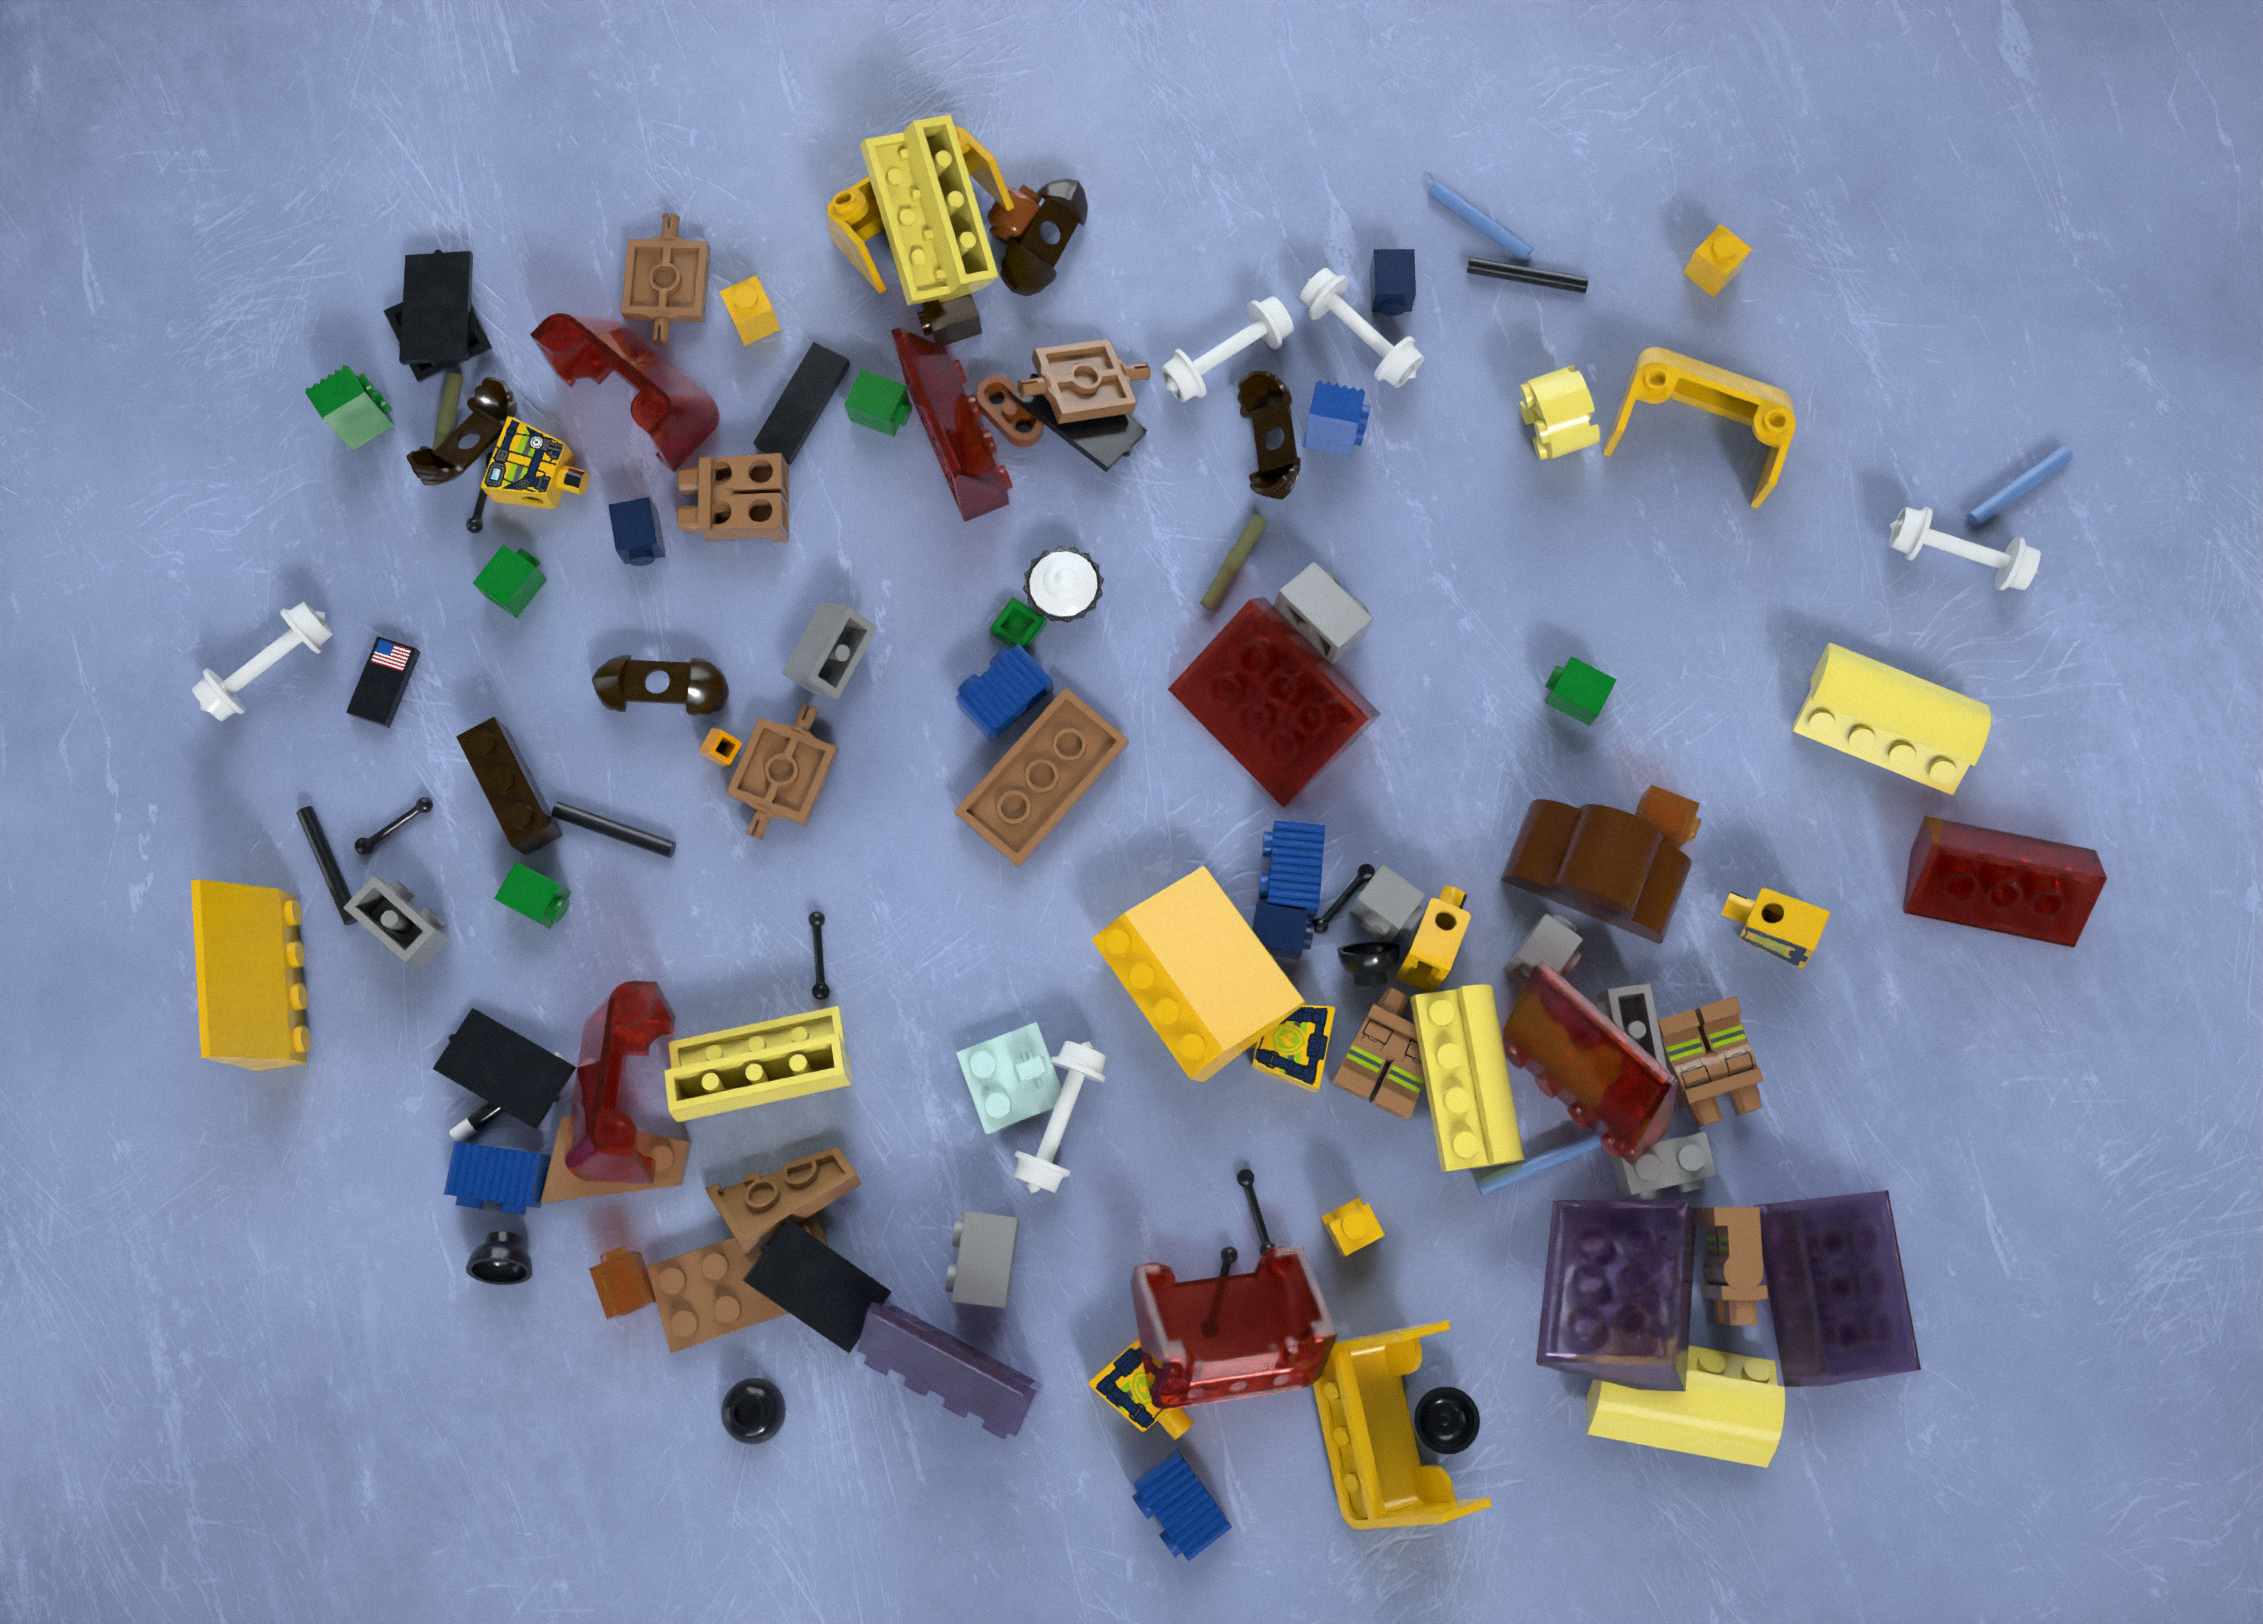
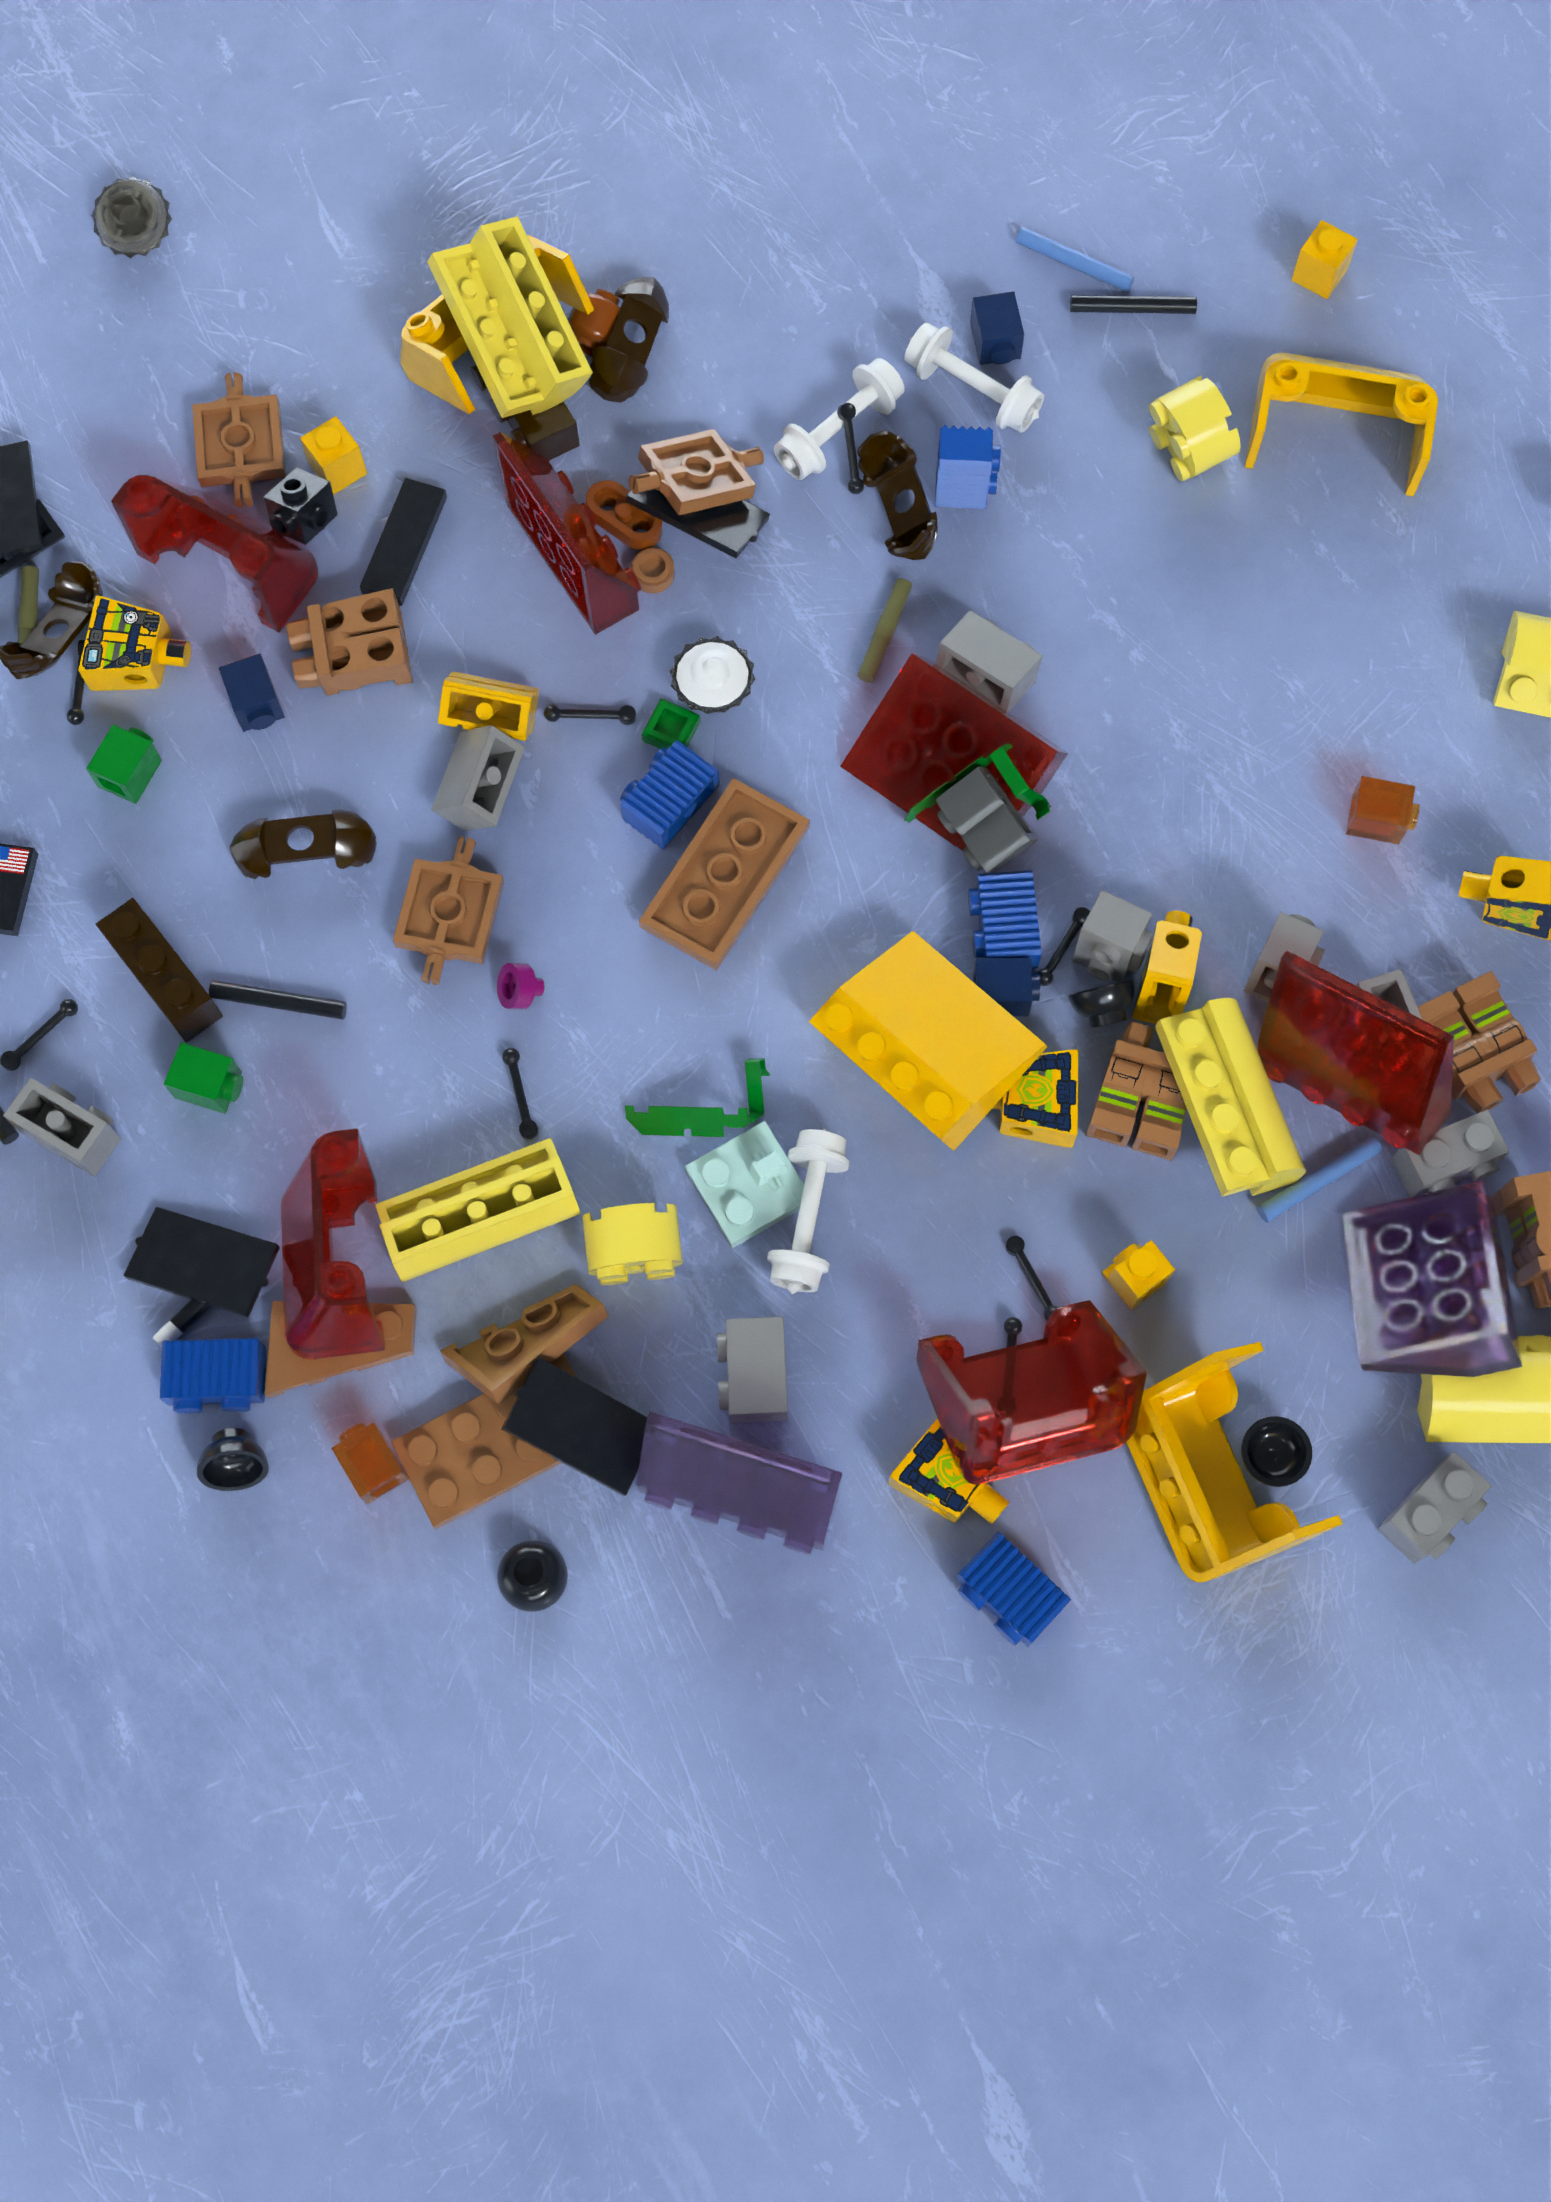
camera: 10 degrees left, 5 degrees down
(602, 41) = (131, 217): none -> clear smoke piece
(710, 356) = (300, 506): none -> black brick
(712, 741) = (382, 886): light orange piece -> none
(833, 855) = (518, 986): none -> magenta tile
(851, 580) = (486, 702): none -> yellow brick
(878, 403) = (485, 527): green brick -> none
(893, 1121) = (632, 1242): none -> light yellow brick
(978, 605) = (625, 714): none -> black hinge
(982, 1015) = (703, 1120): none -> green piece
(1028, 468) = (653, 569): none -> medium nougat tile
(1234, 346) = (846, 413): none -> black hinge
(1290, 771) = (985, 821): none -> dark grey brick
(1319, 734) = (1008, 772): none -> green piece
(1579, 690) = (1267, 698): green brick -> none
(1583, 1498) = (1434, 1508): none -> light grey brick
(1599, 865) = (1325, 864): reddish brown brick -> none

